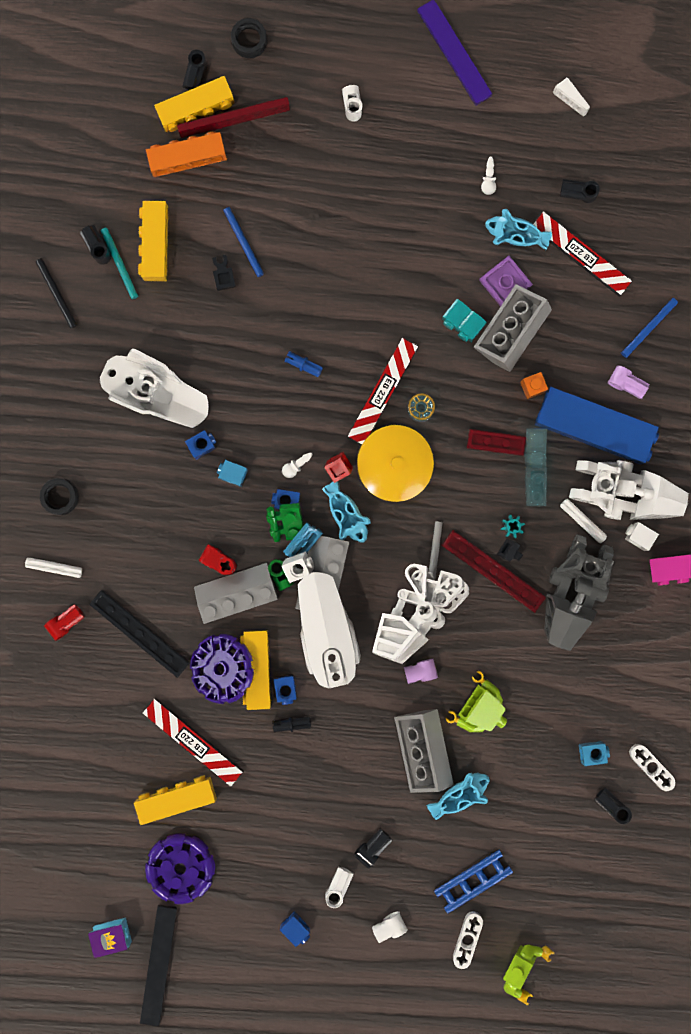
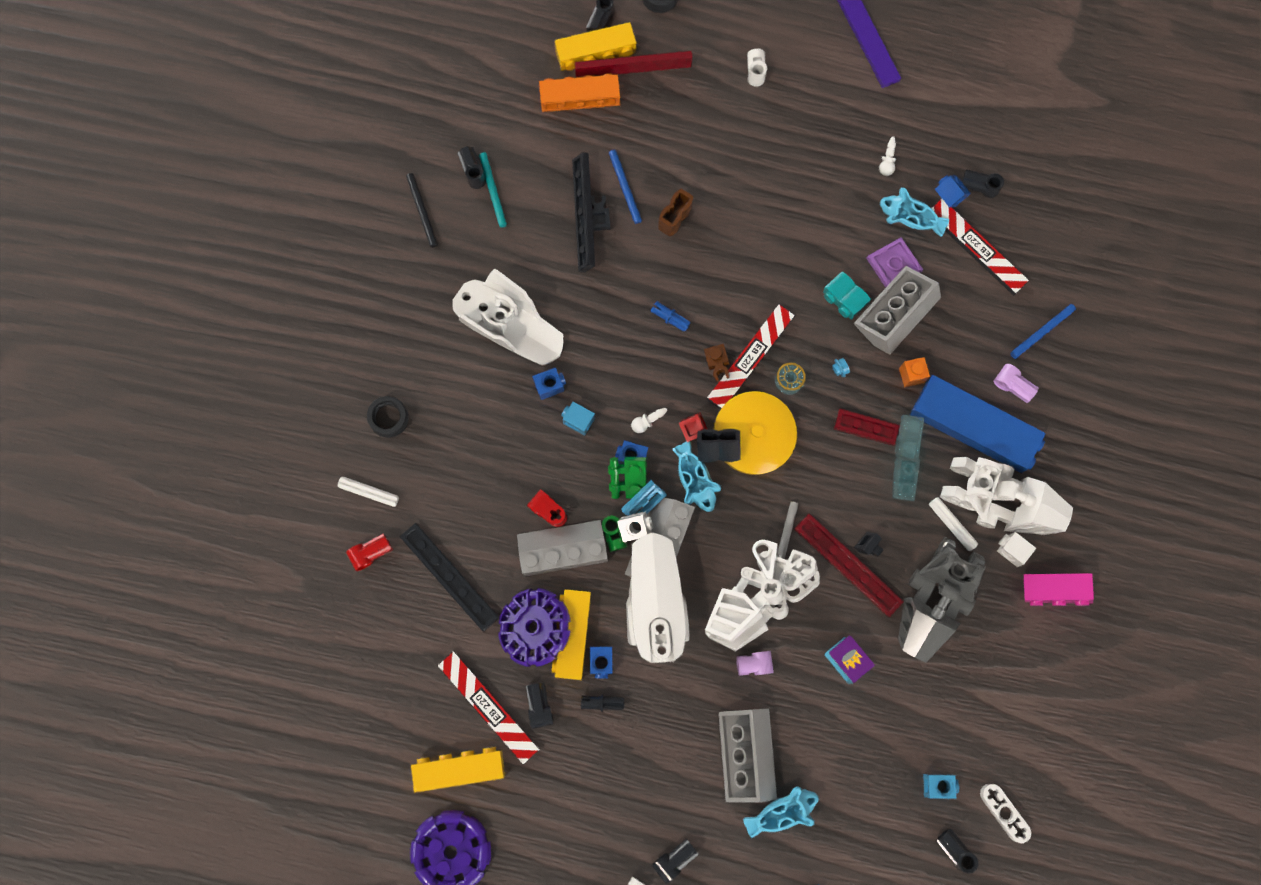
camera: 10 degrees right, 10 degrees down
(154, 240) = (533, 172): yellow brick -> none
(208, 274) = (583, 212): none -> black tile
(238, 739) = (539, 712): none -> black piece
(297, 259) = (677, 211): none -> reddish brown brick
(351, 399) = (717, 360): none -> reddish brown plate
(363, 483) = (718, 445): none -> black brick
(466, 390) = (841, 367): none -> dark azure plate
(482, 709) = (819, 716): lime torso -> none
(503, 656) = (849, 659): none -> dark purple piece
(507, 528) = (880, 520): teal gear -> none
(552, 203) = (952, 190): none -> blue brick
(569, 94) = (982, 91): white slope -> none

